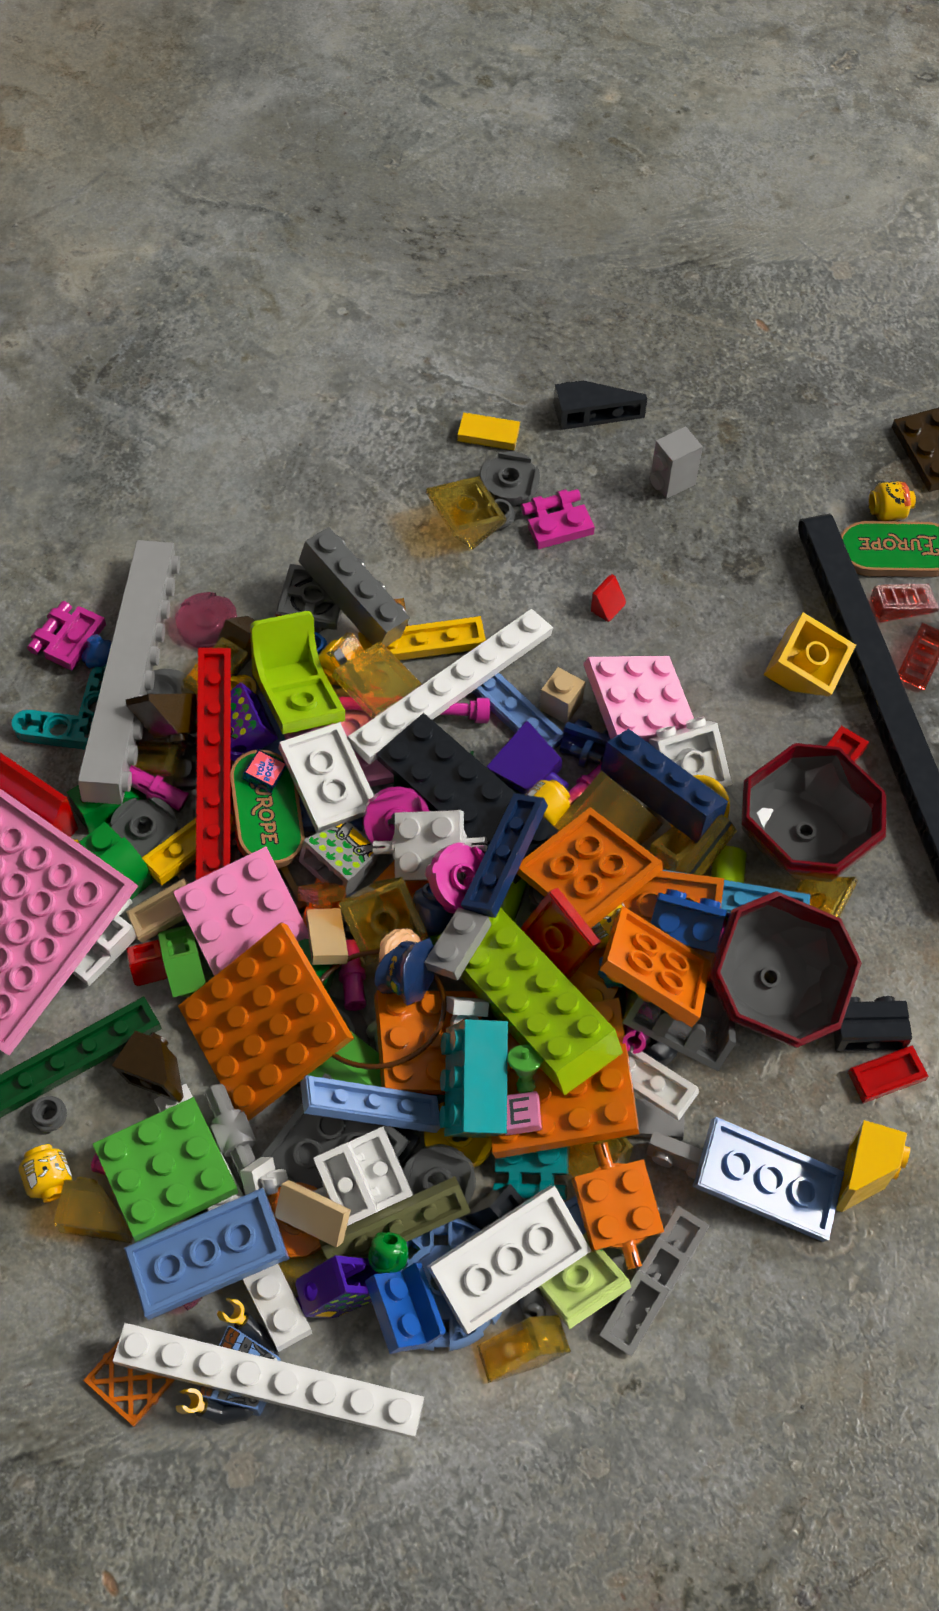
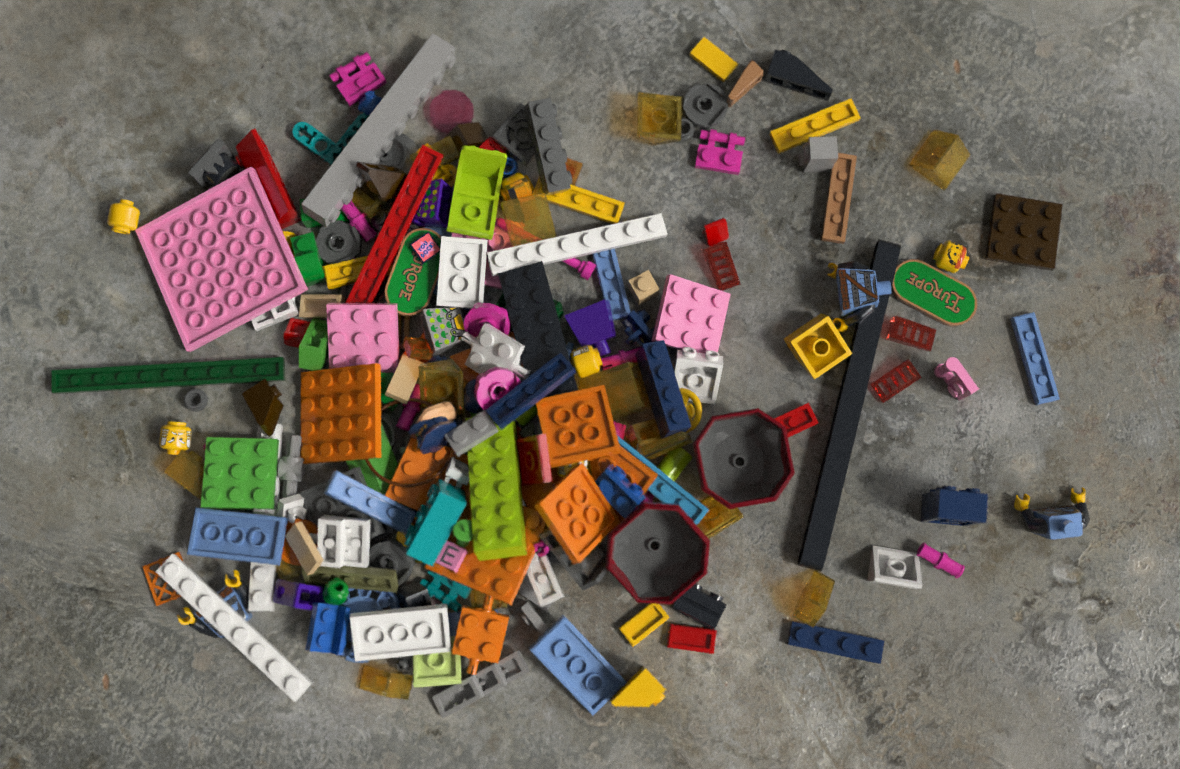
camera: 25 degrees right, 20 degrees up
(543, 431) = (750, 77): none -> medium nougat slope
(637, 619) = (714, 269): none -> clear red slope
(639, 451) = (814, 125): none -> yellow plate
(727, 504) = (839, 199): none -> medium nougat plate
(808, 413) = (940, 158): none -> clear yellow slope
(815, 575) = (857, 292): none -> torso
(815, 1087) = (643, 623): none -> yellow tile

